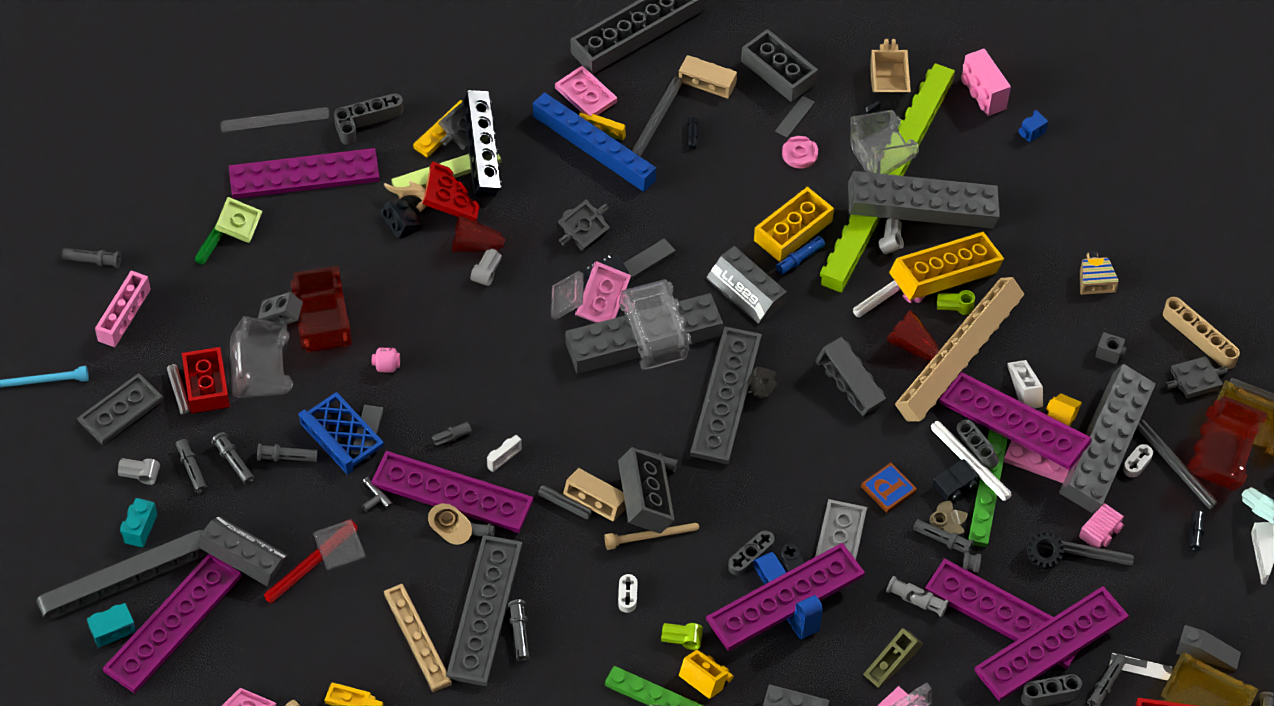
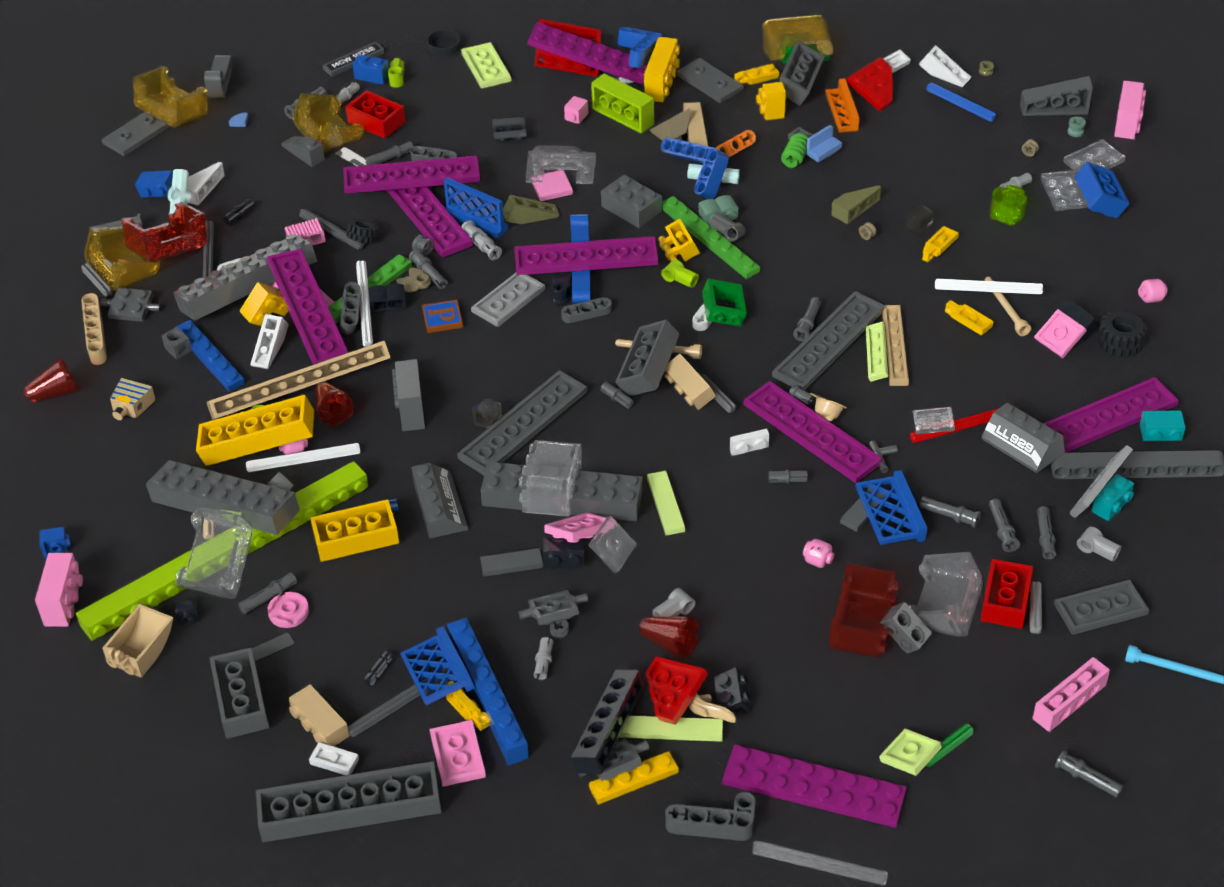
camera: 150 degrees left, 10 degrees down
(151, 514) = (1100, 481): none -> light grey tile
(431, 616) = (876, 351): none -> yellowish green tile
(549, 367) = (665, 503): none -> yellowish green tile
(567, 186) = (543, 658): none -> light grey pin
(622, 135) = (450, 661): none -> blue fence
(622, 621) = (725, 291): none -> green window
(672, 54) = (334, 759): none -> white plate
(818, 167) = (275, 588): none -> dark grey pin
(953, 629) = (462, 213): none -> blue fence
(1067, 352) = (211, 357): none -> blue plate
(1175, 259) = (51, 383): none -> clear red cone

